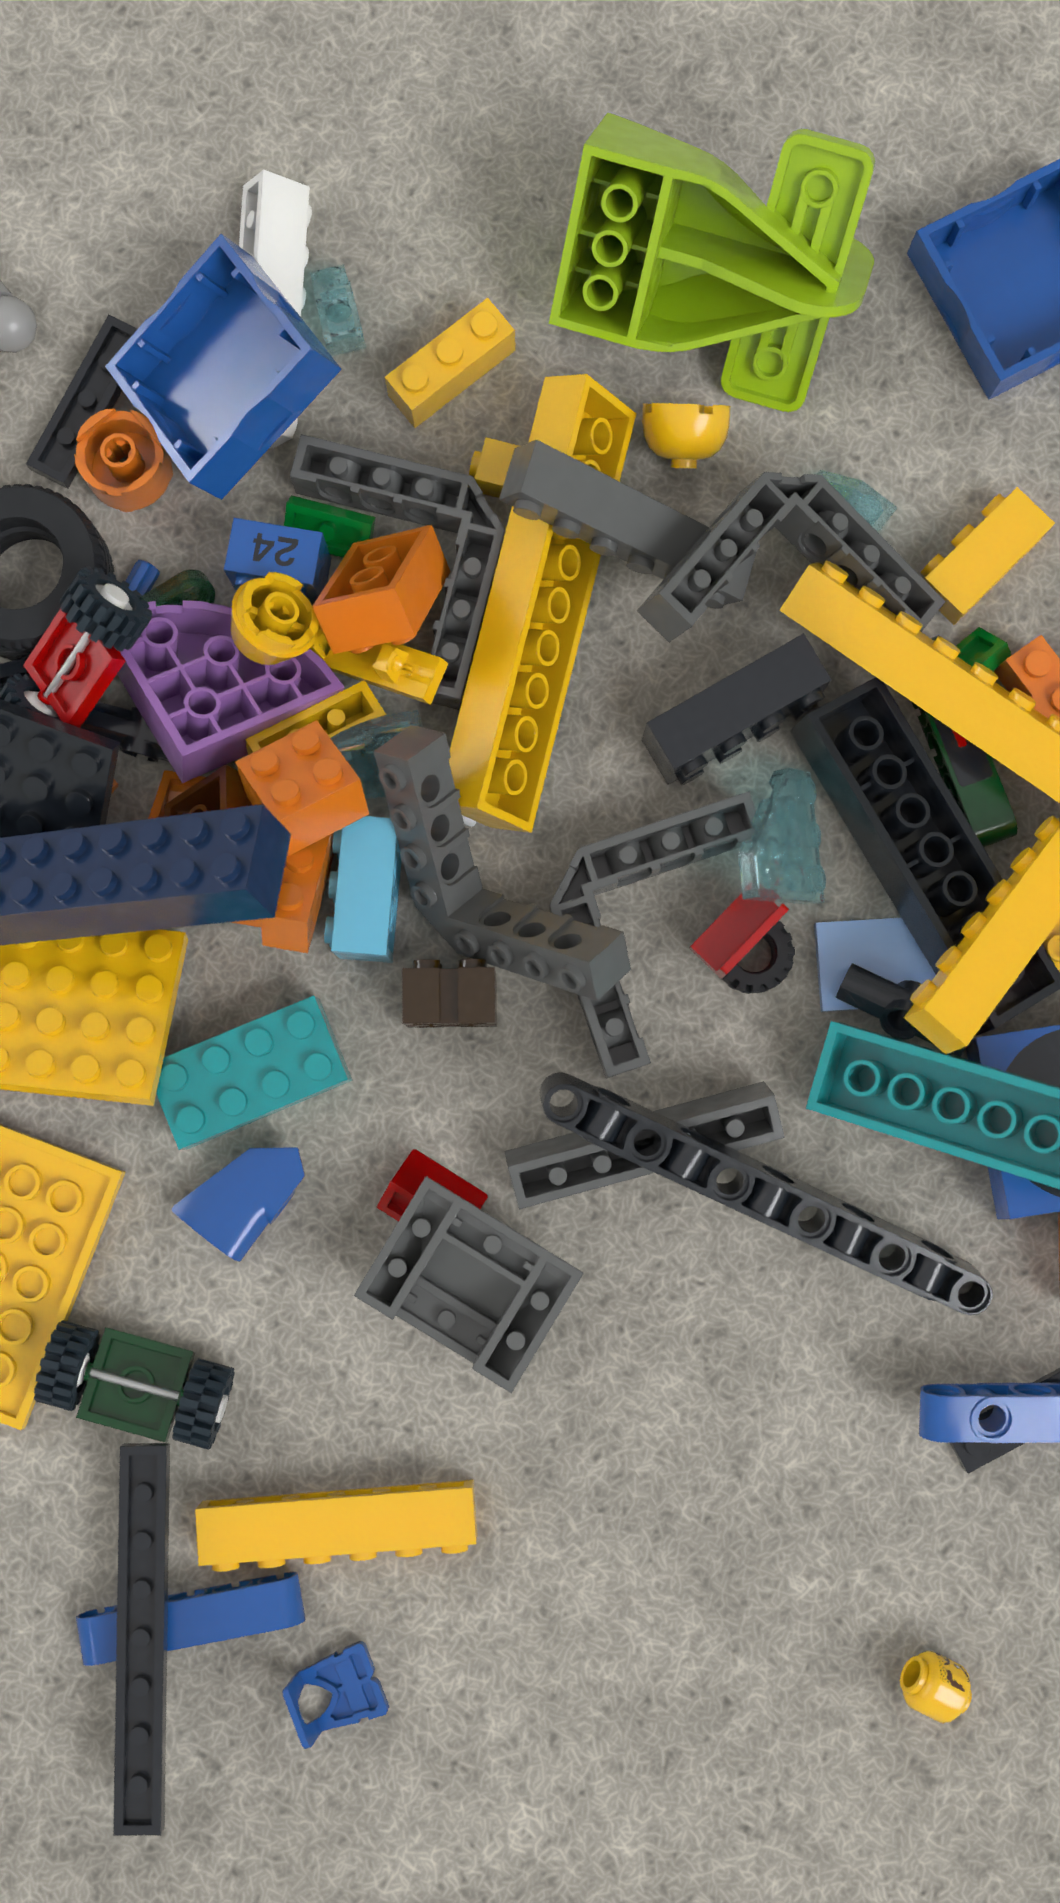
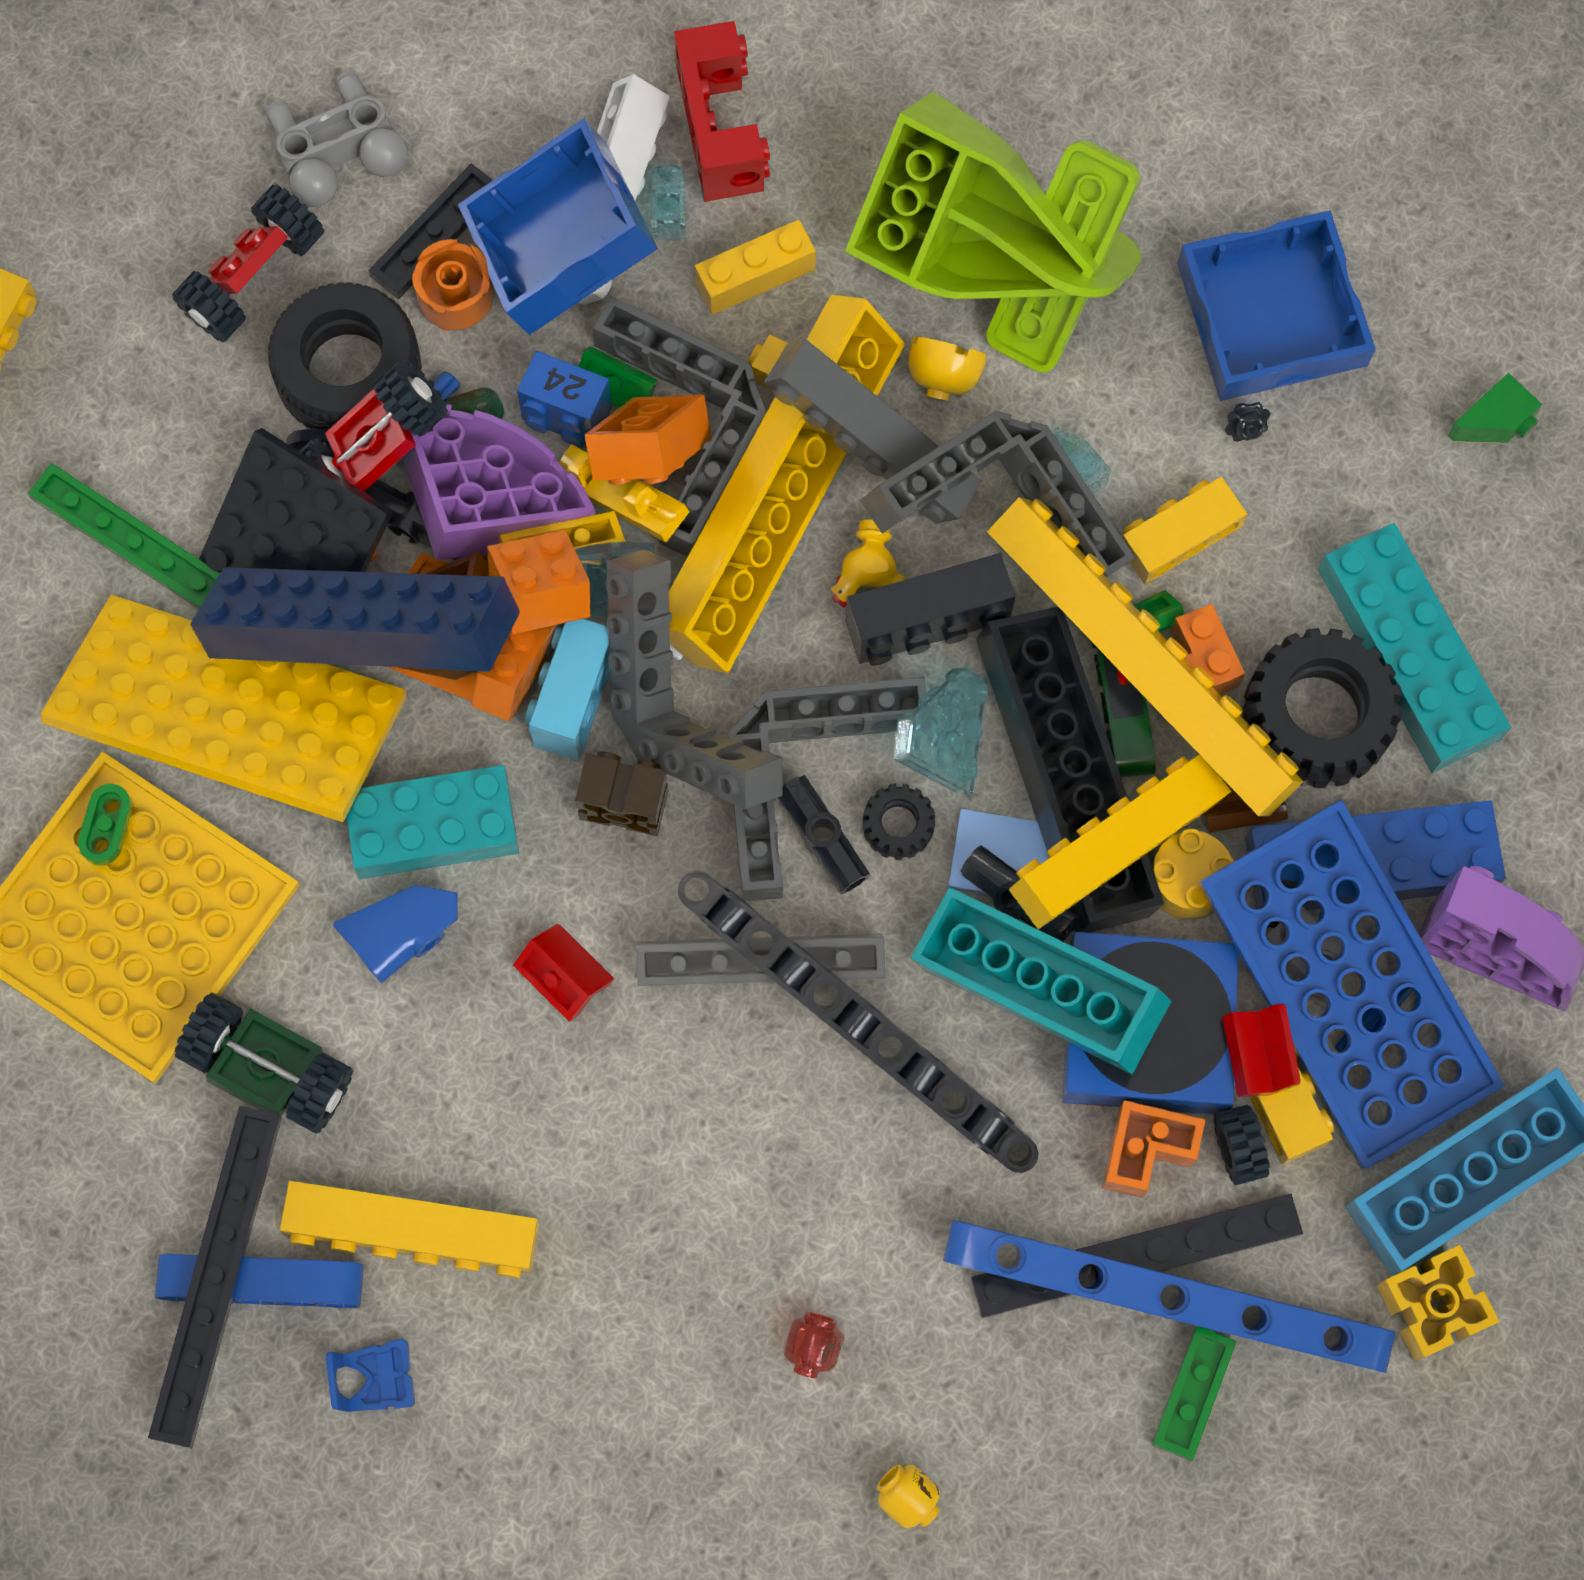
camera: 10 degrees right, 10 degrees down
(272, 619) = (548, 440): yellow cone -> none
(344, 139) = (707, 64): none -> red plate
(469, 1283) = (577, 1039): dark grey slope -> none
(653, 676) = (866, 565): none -> yellow animal
(697, 1008) = (836, 855): none -> black piece
(736, 933) = (886, 795): red panel -> none
(797, 1547) = (813, 1344): none -> clear red head
(1026, 416) = (1247, 421): none -> black plant

